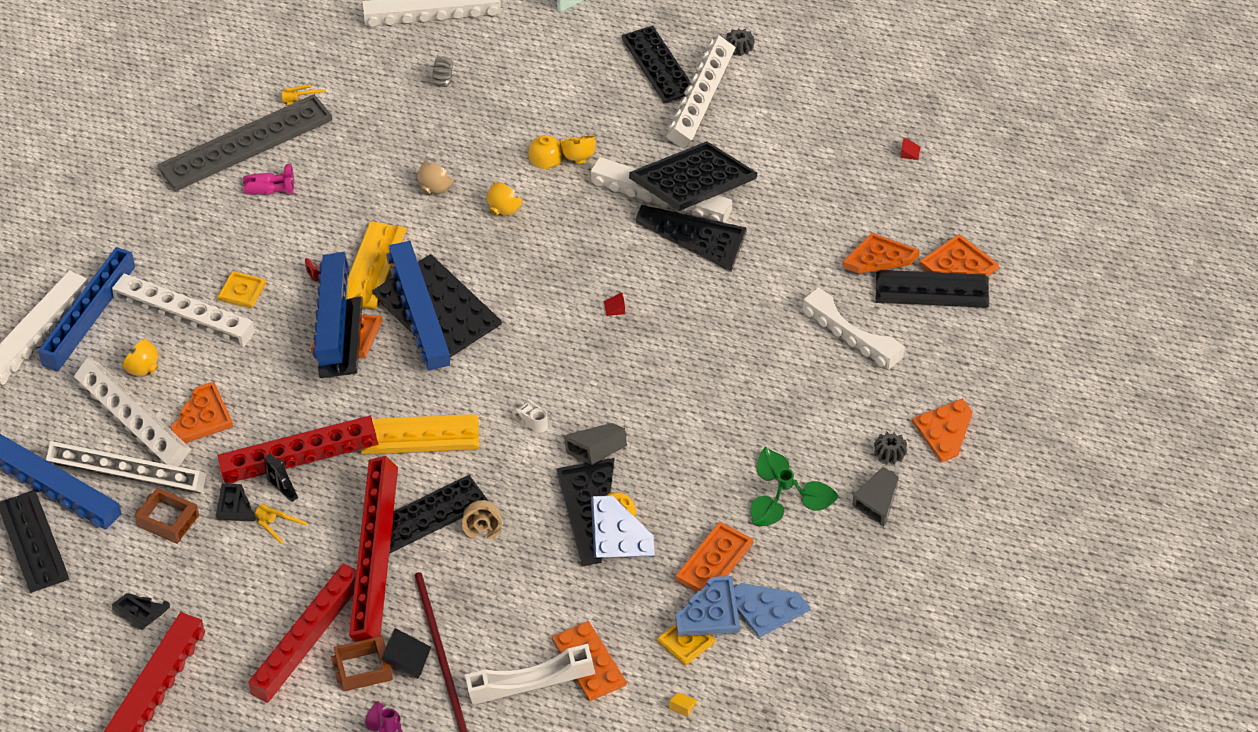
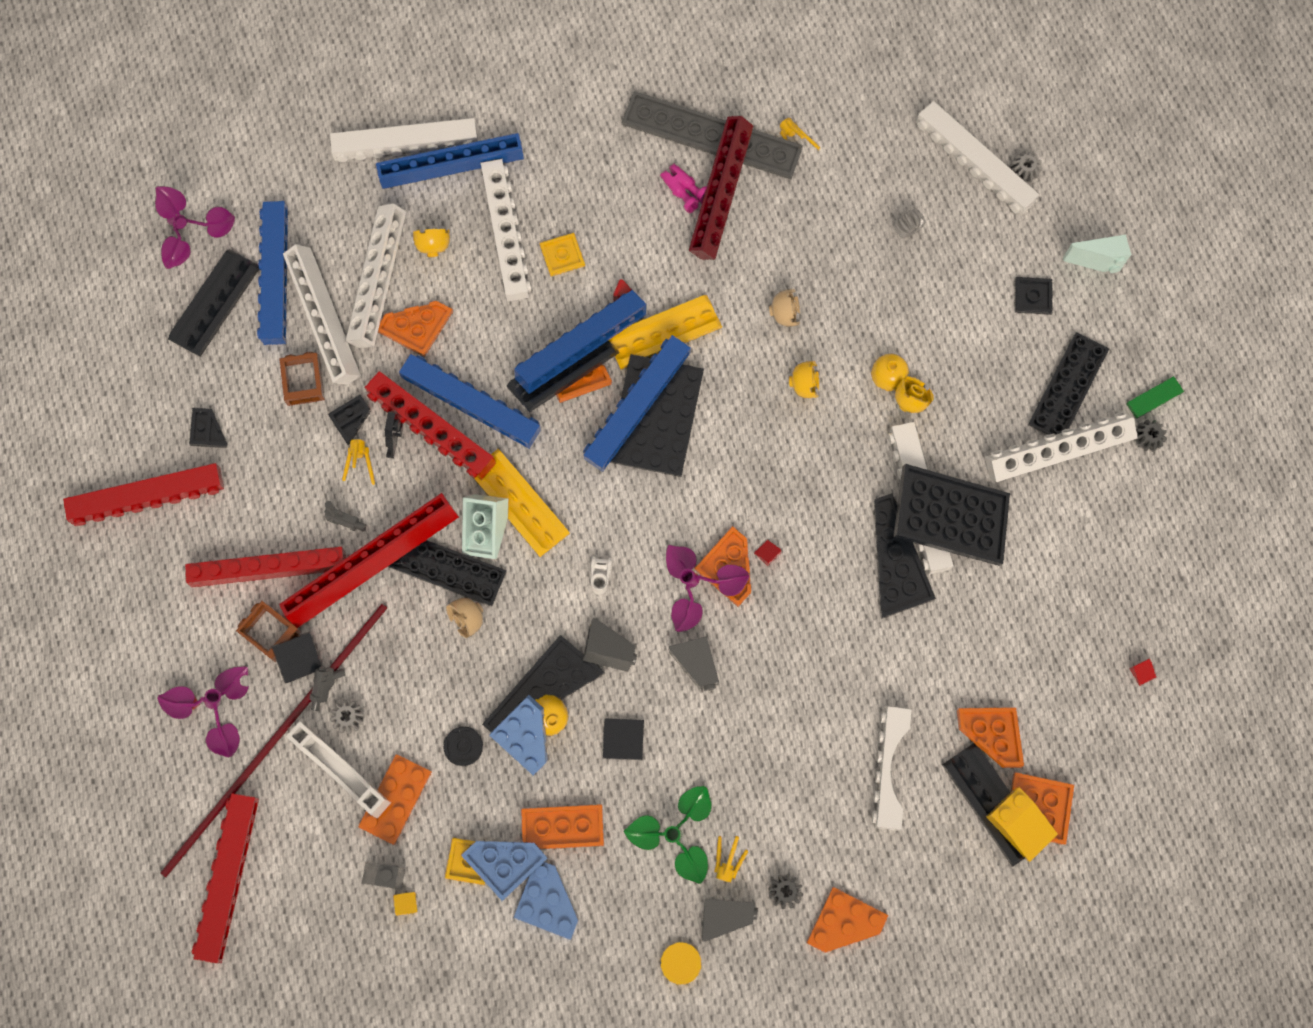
camera: 50 degrees right, 25 degrees up
(298, 156) = (721, 188): none -> dark red brick
(304, 414) = (470, 401): none -> blue brick
(313, 558) = (344, 519): none -> dark grey piece
(419, 463) = (483, 525): none -> light aqua slope
(441, 645) = (323, 680): none -> dark grey piece
(489, 650) = (354, 717): none -> light grey gear
(569, 42) = (1033, 295): none -> black tile
(571, 359) = (680, 564): none -> magenta plant
(592, 592) = (467, 751): none -> black tile
(604, 335) = (730, 550): none -> orange plate
(648, 694) = (383, 876): none -> dark grey slope
(661, 396) = (696, 662): none -> dark grey slope
(678, 481) = (623, 739): none -> black tile
(713, 22) = (1155, 397): none -> green tile
(842, 475) = (725, 871): none -> yellow plant
(890, 548) = (681, 963): none -> yellow tile
(960, 275) = (1022, 824): none -> yellow slope

